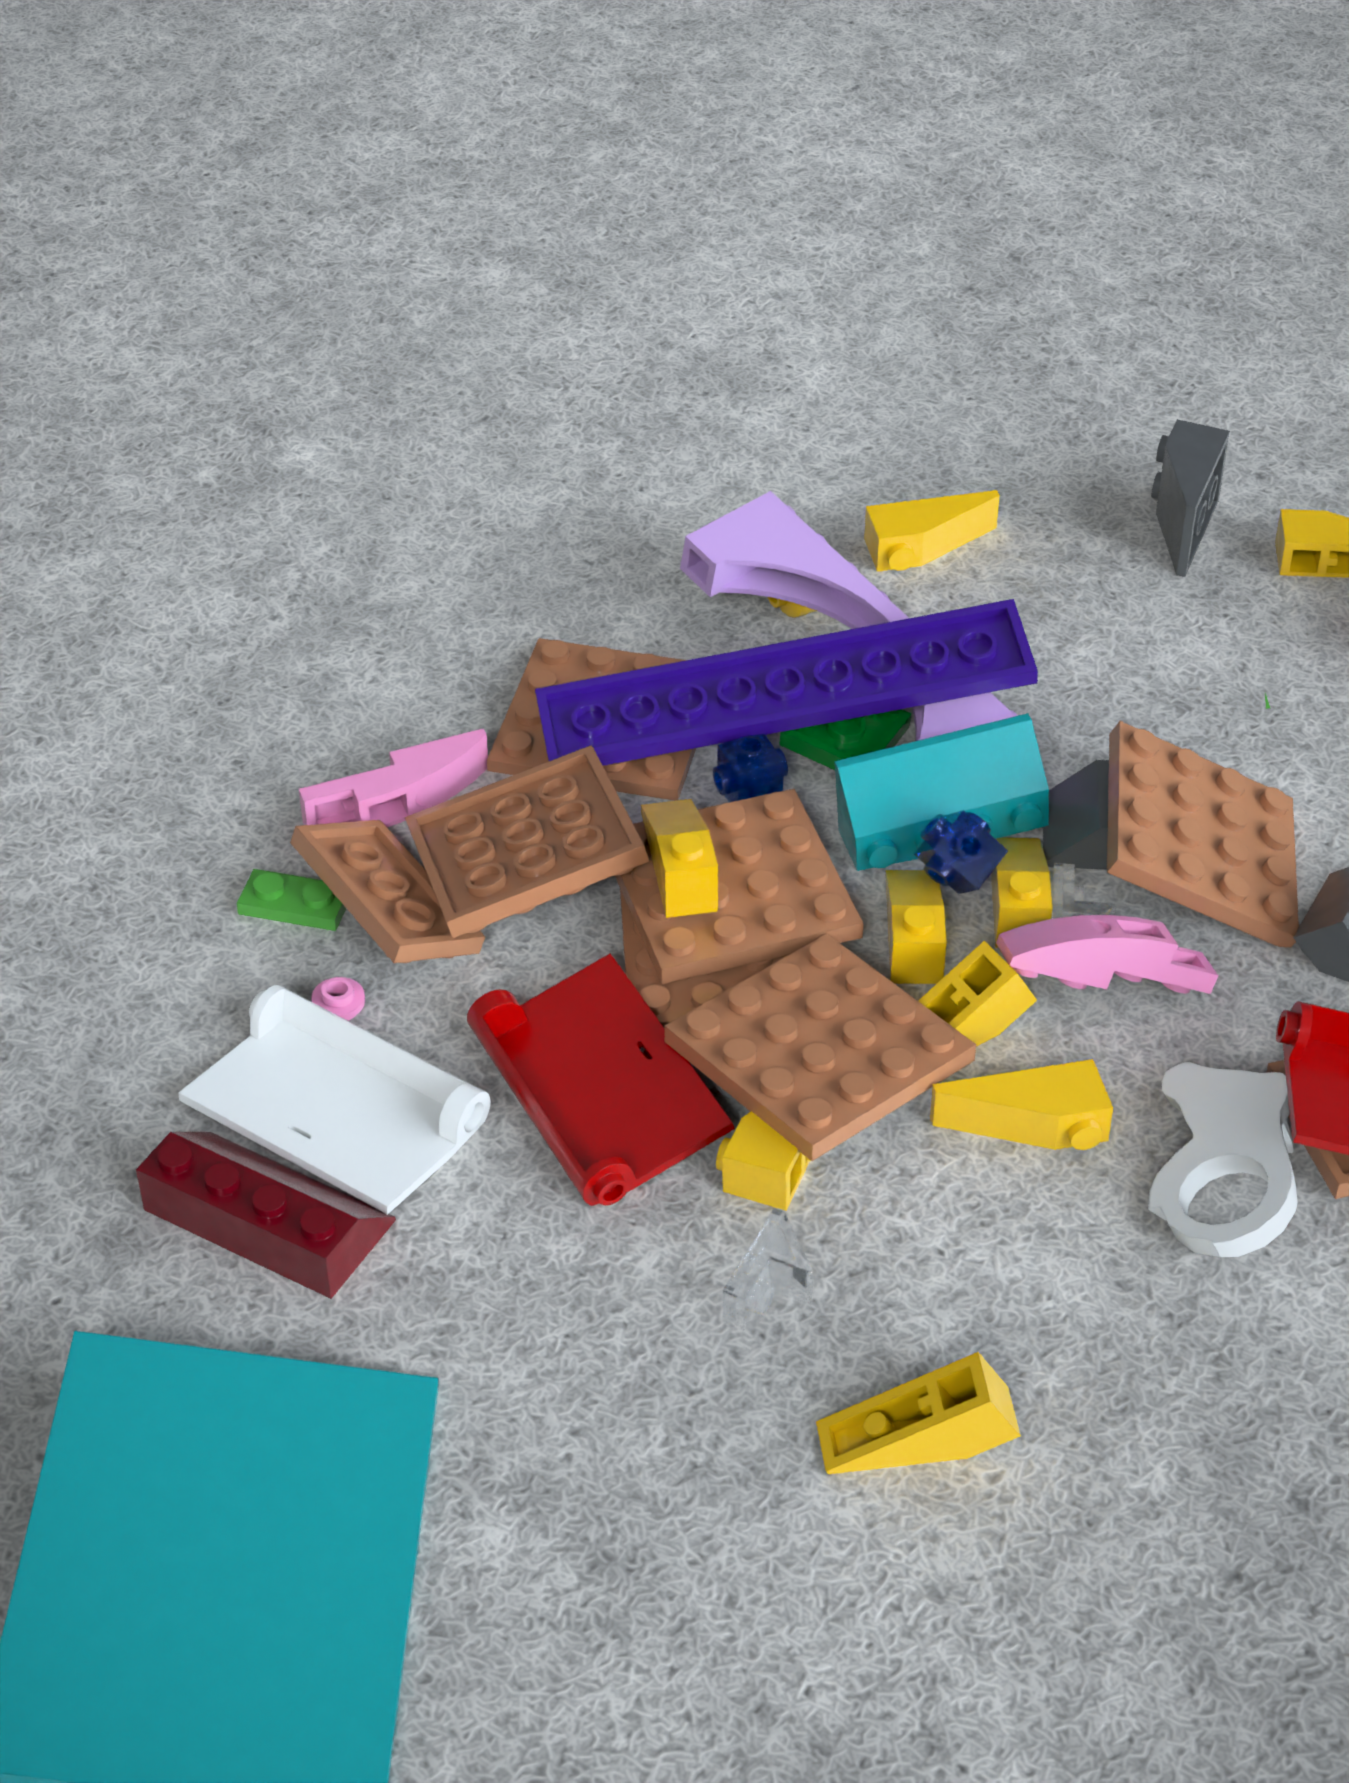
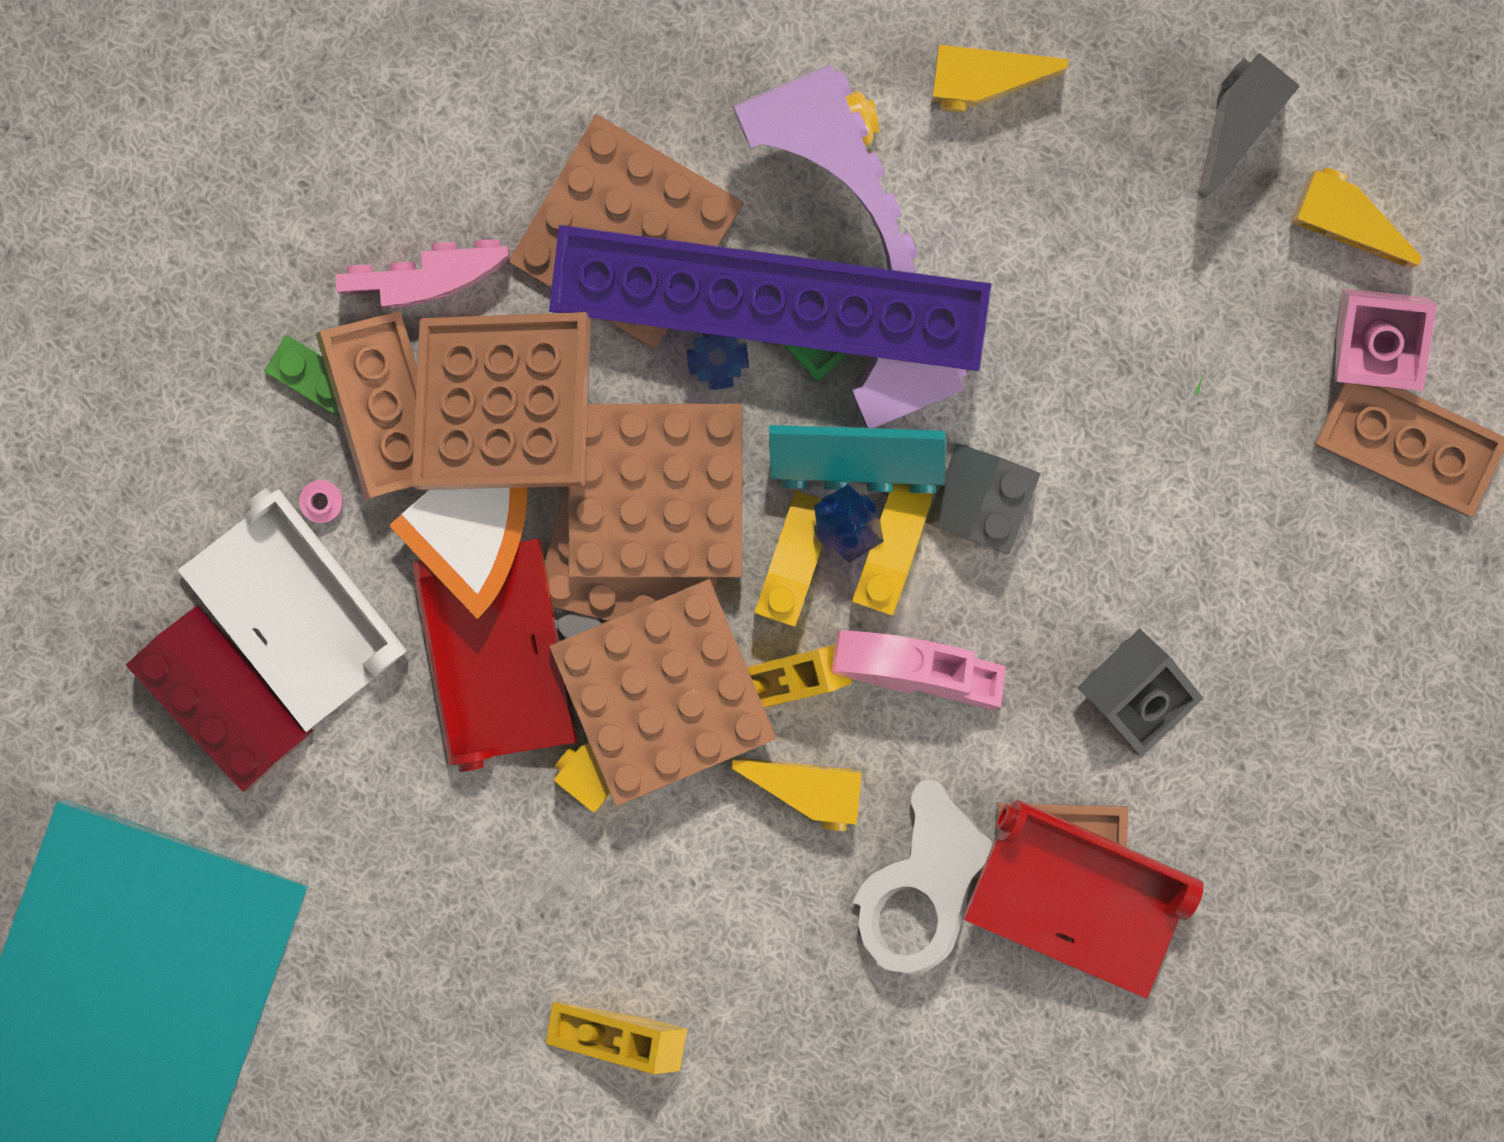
camera: 20 degrees right, 45 degrees up
(527, 961) = (466, 538): none -> white sticker
(682, 857) = (615, 469): yellow slope -> none
(1201, 835) = (1051, 563): nougat plate -> none

